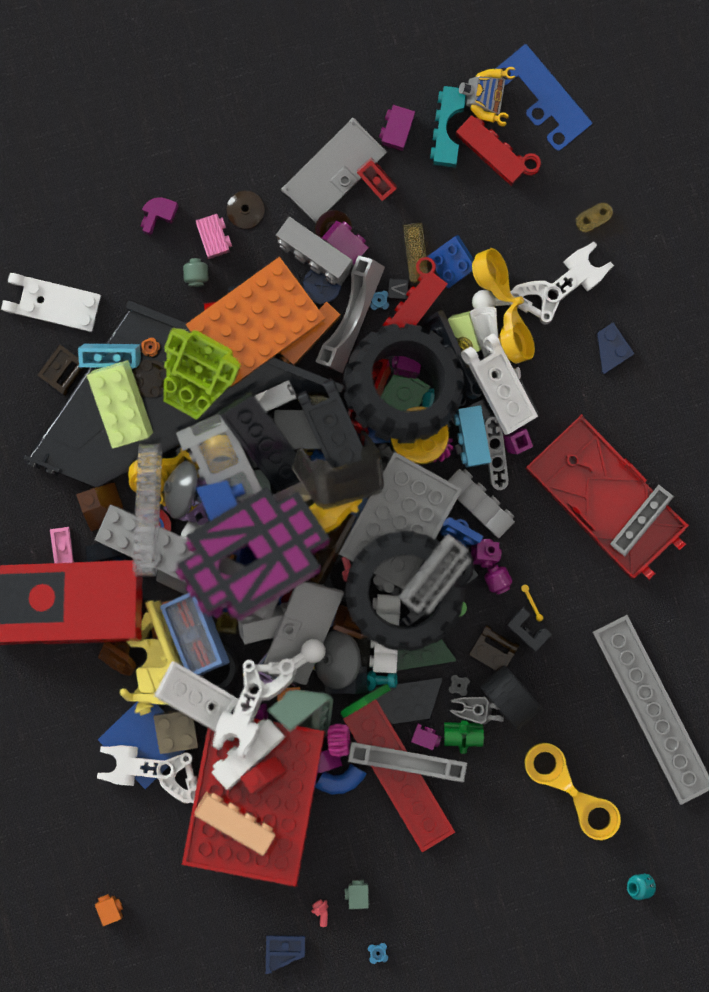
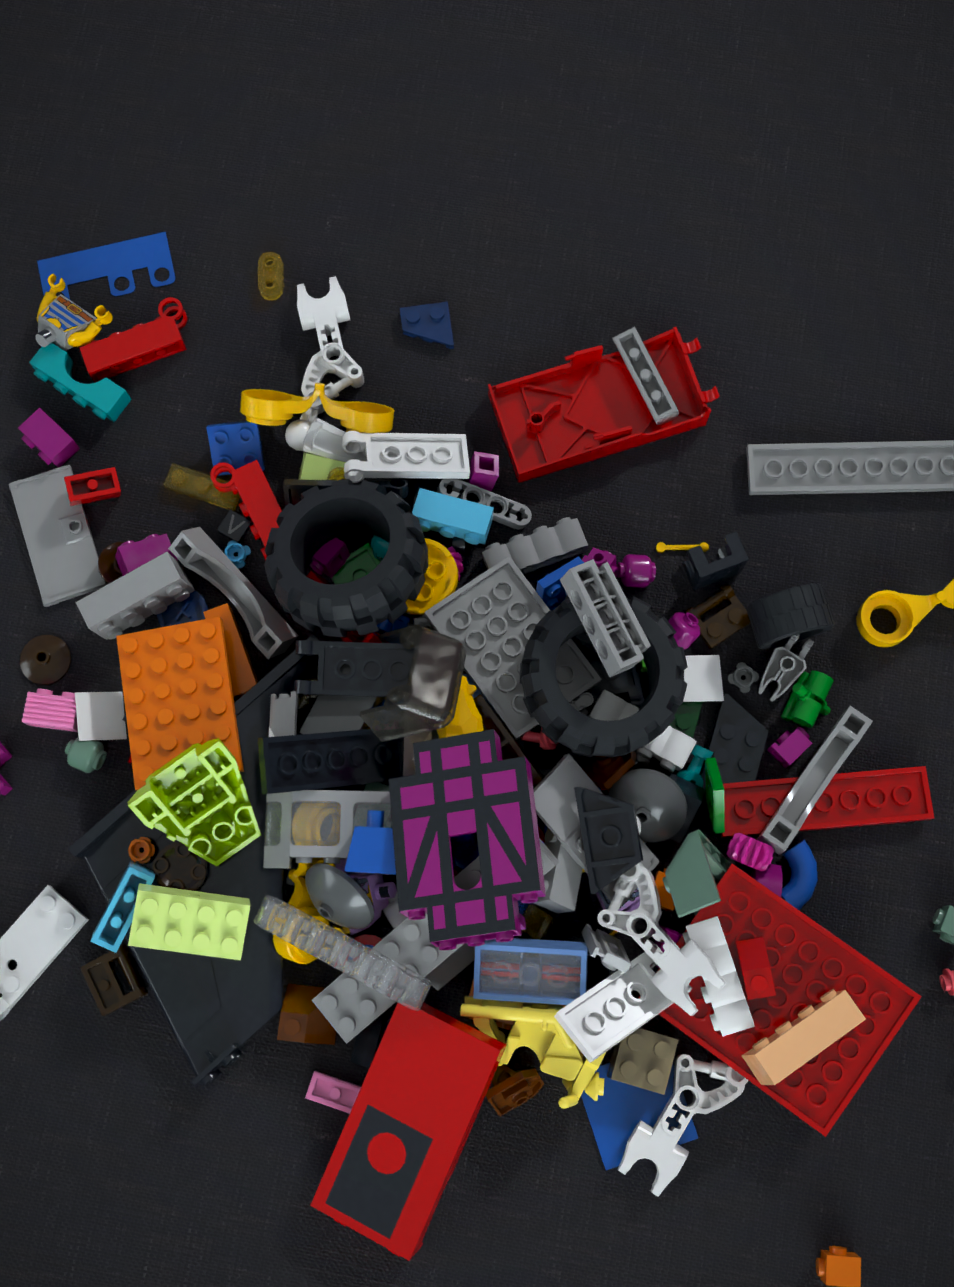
camera: 65 degrees left, 10 degrees down
(225, 269) = (100, 716): none -> white sticker
(231, 675) = (607, 947): none -> light grey plate
(300, 643) = (608, 836): none -> black wing
(443, 656) = (703, 679): none -> white sticker
(469, 628) = (686, 628): none -> magenta head

